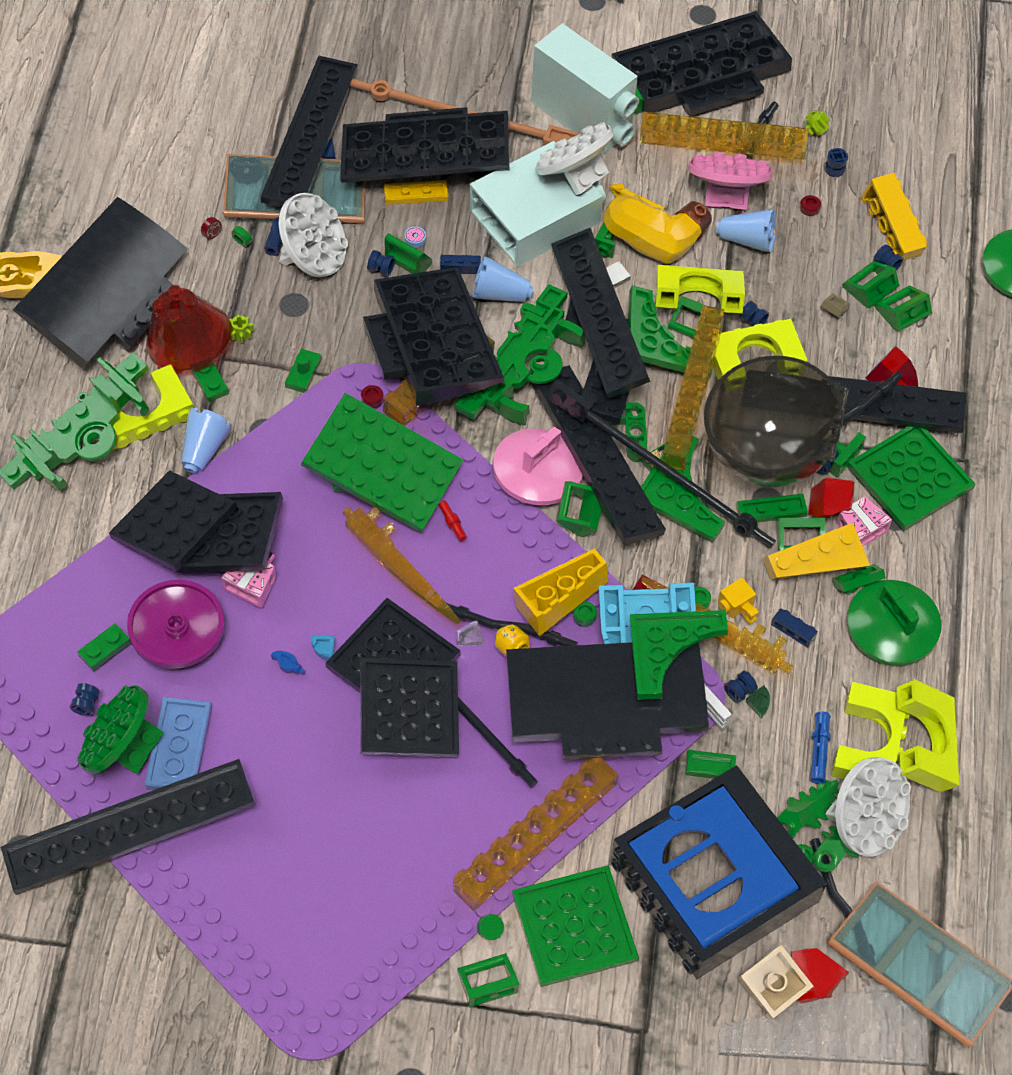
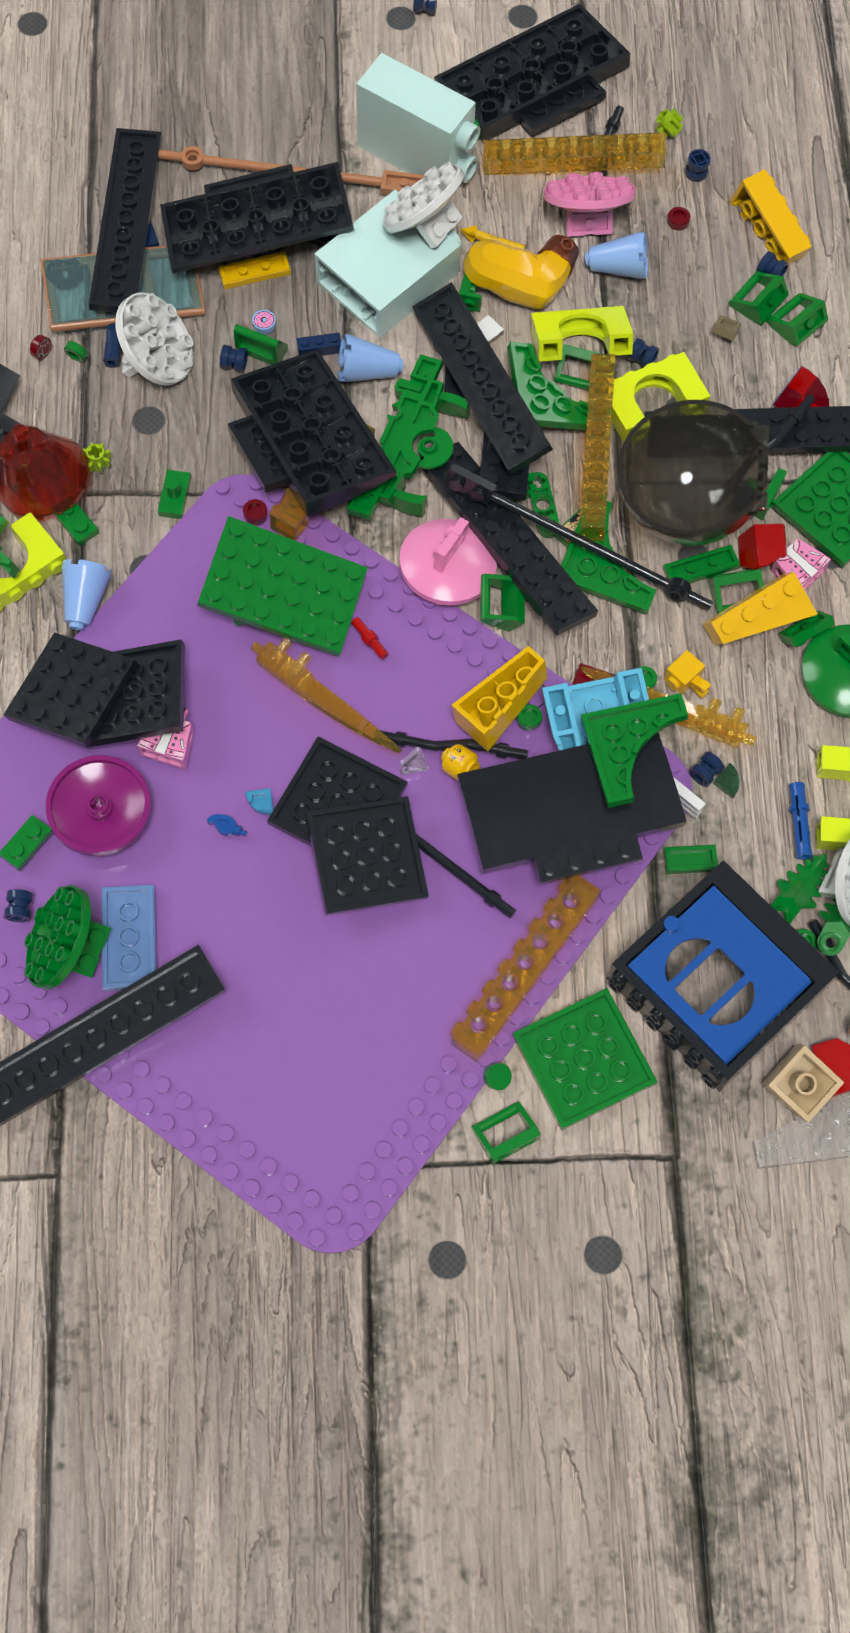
camera: 10 degrees left, 10 degrees up
(794, 627) = (749, 694): dark blue piece -> none

